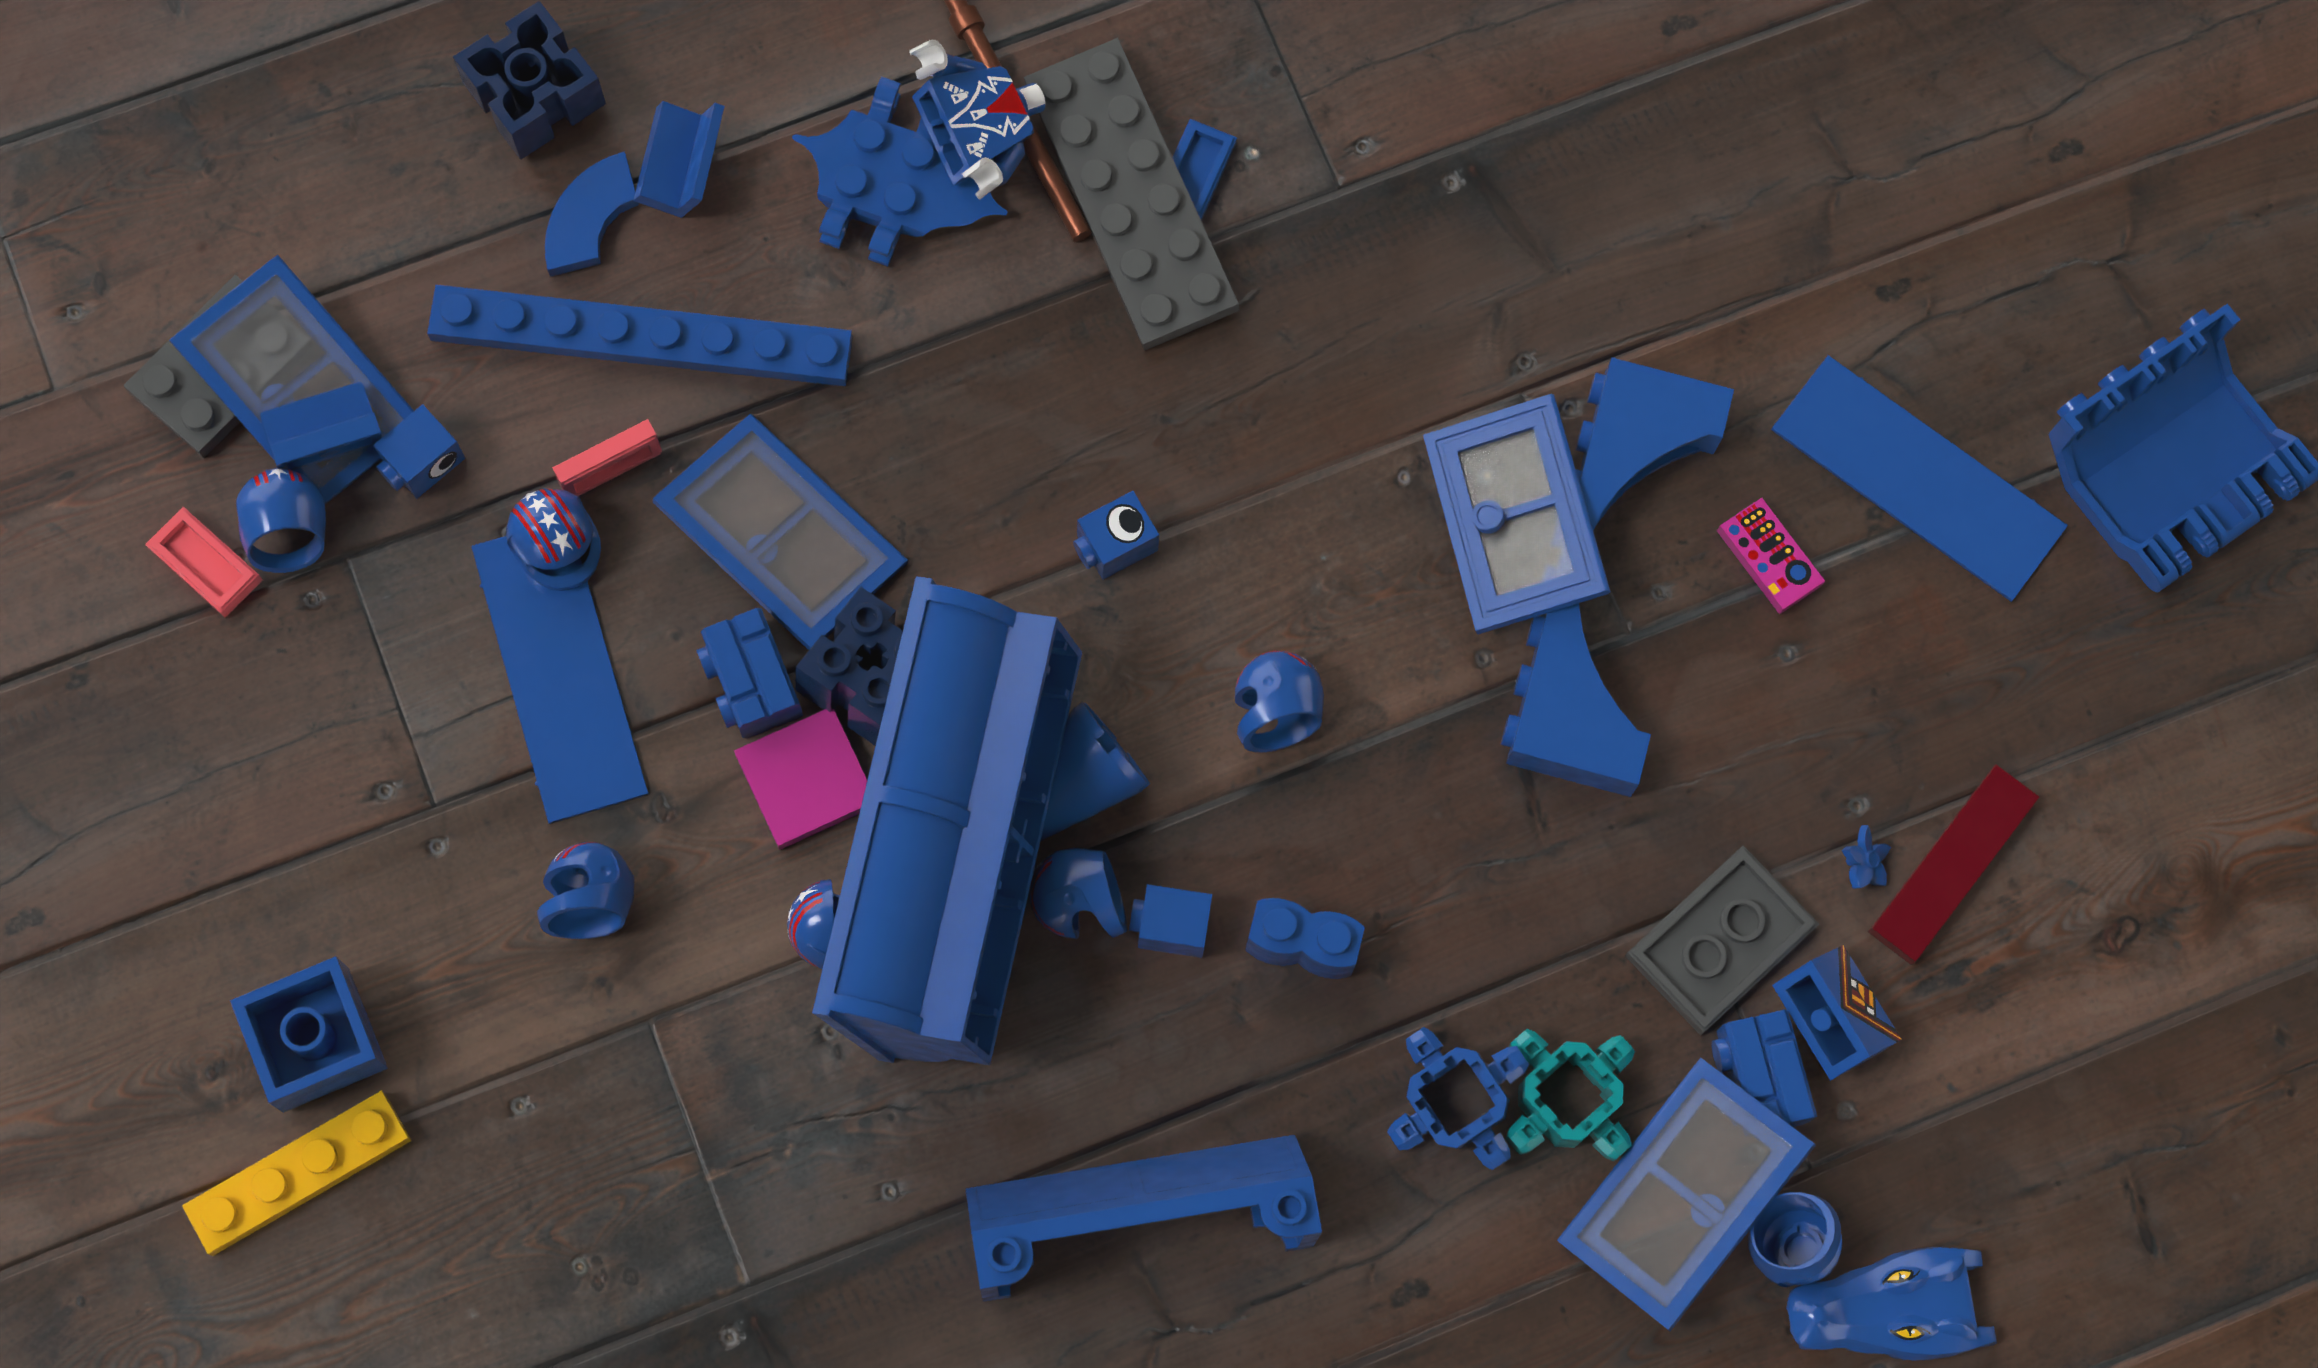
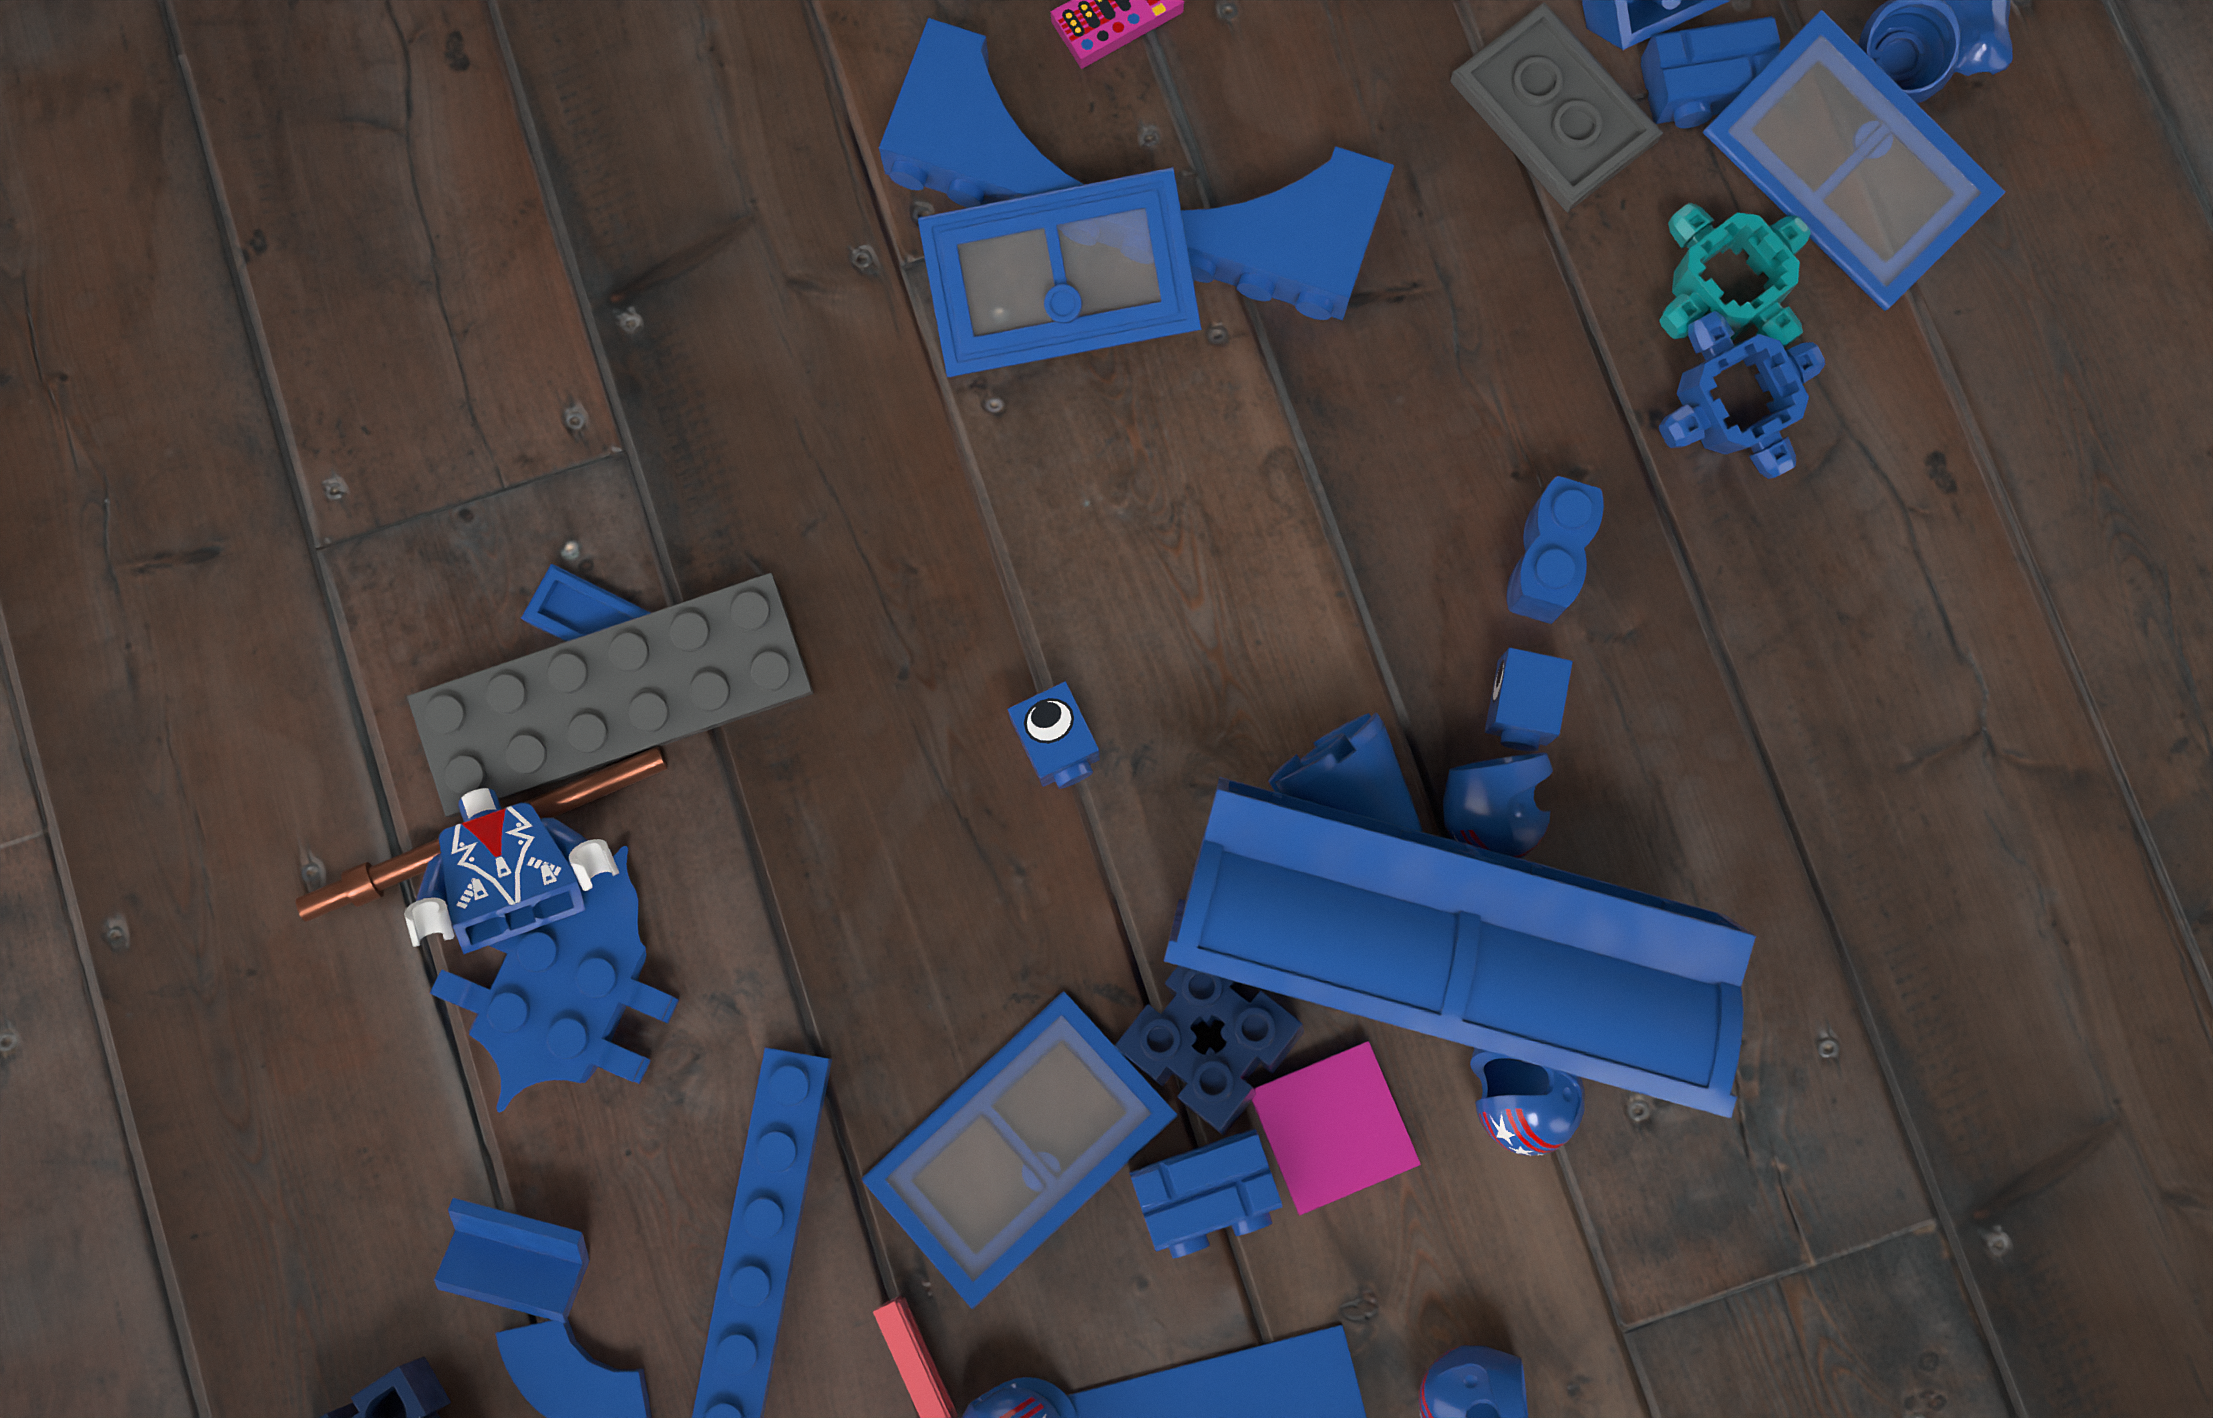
camera: 80 degrees left, 5 degrees up
(1255, 1174) = (1875, 756): blue windscreen -> none
(1279, 688) = (1263, 545): blue helmet -> none

